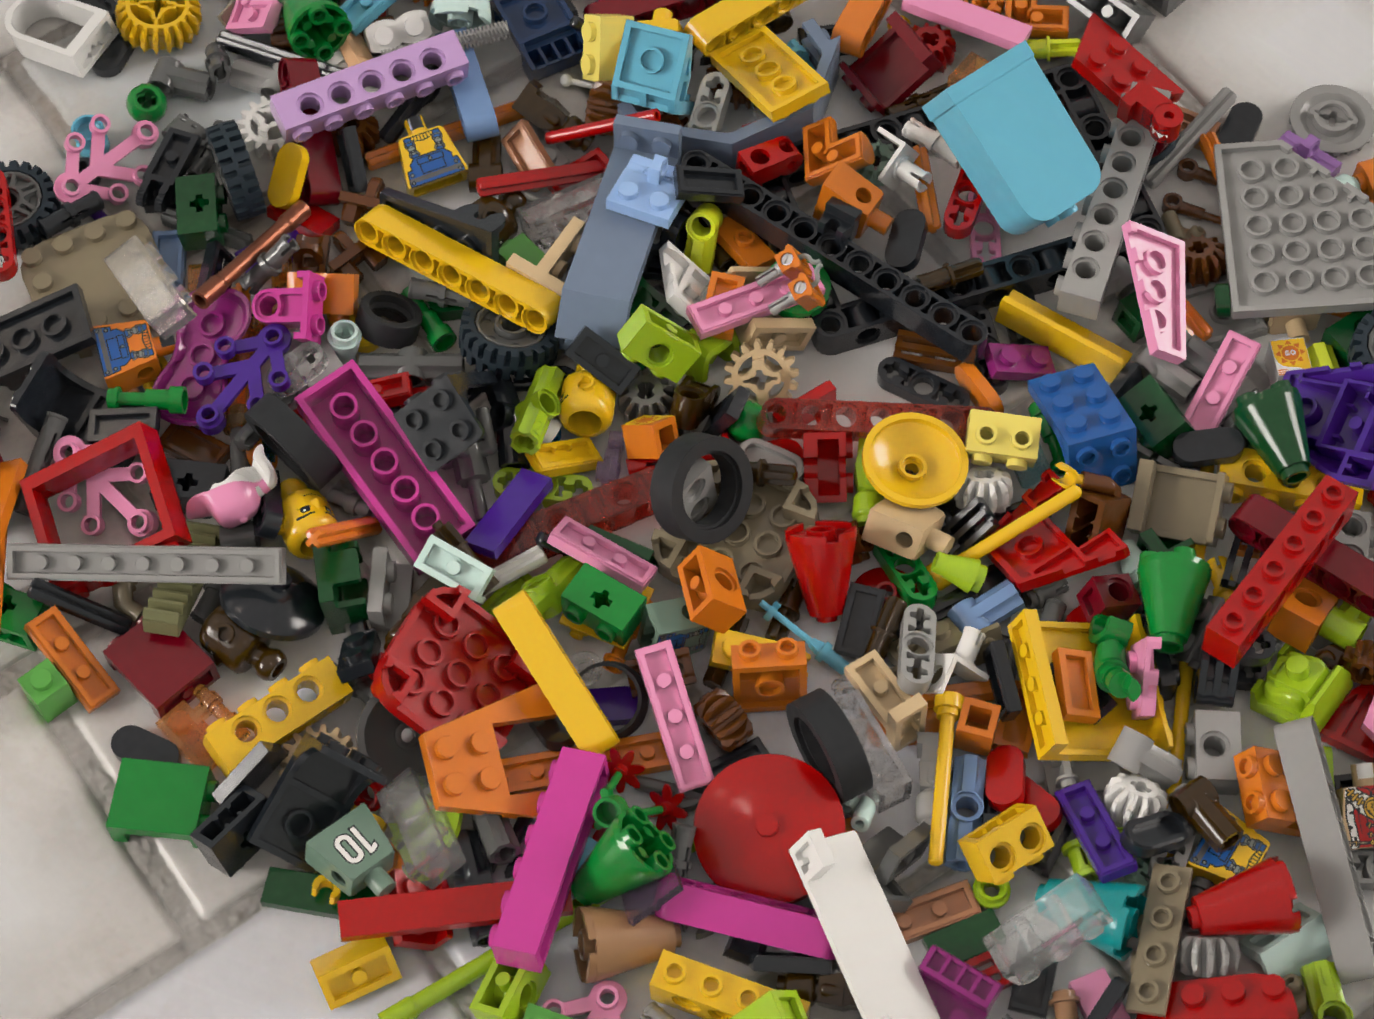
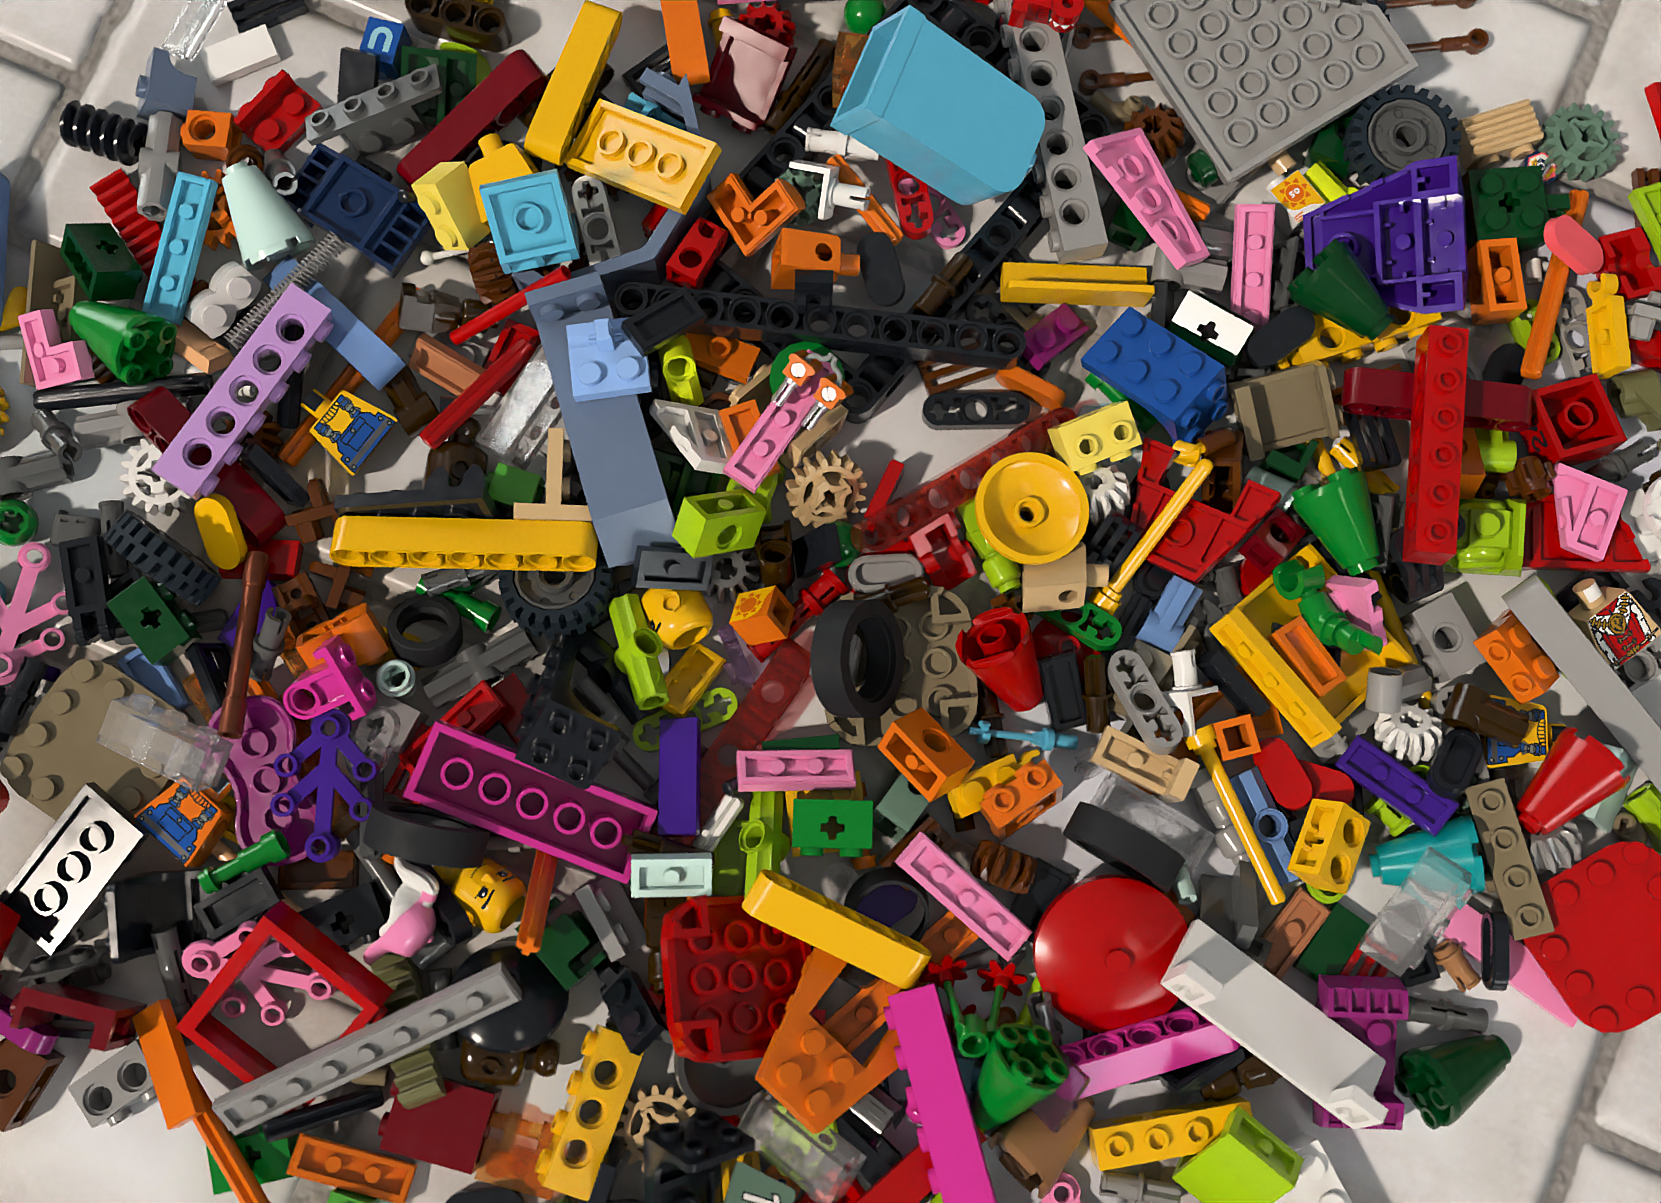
camera: 35 degrees left, 20 degrees up
(961, 571) = (1134, 593): lime cone -> none

